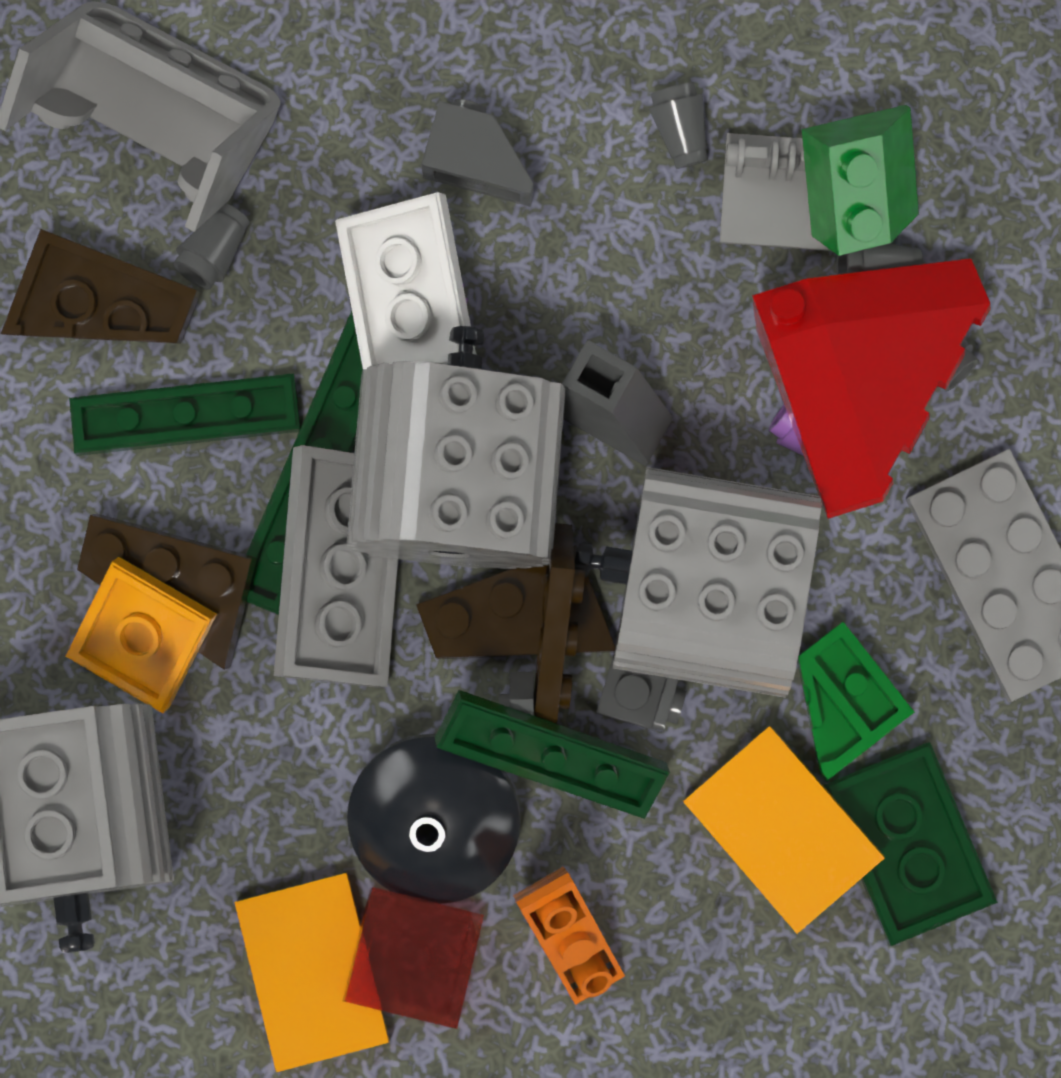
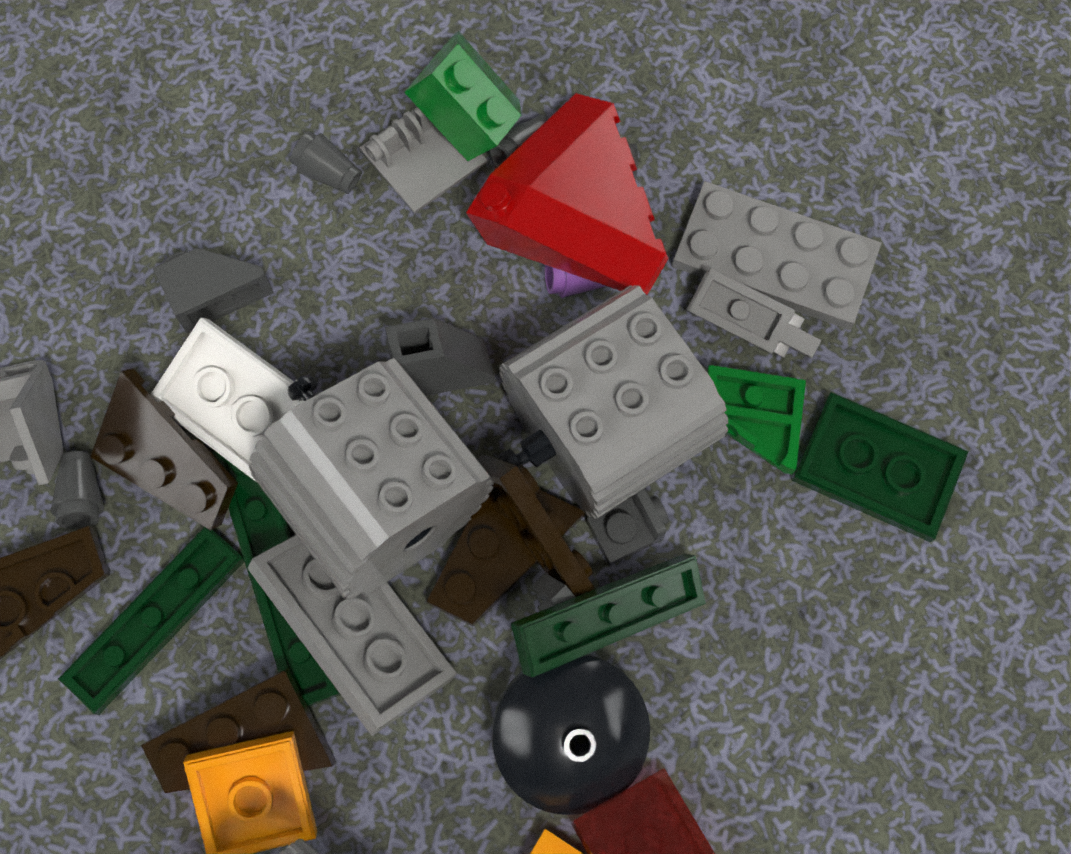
camera: 45 degrees left, 10 degrees down
(301, 270) = (158, 456): none -> dark brown wing
(569, 935) = (732, 724): orange slope -> none
(784, 829) = (800, 526): light orange tile -> none
(925, 612) = (751, 315): none -> light grey hinge

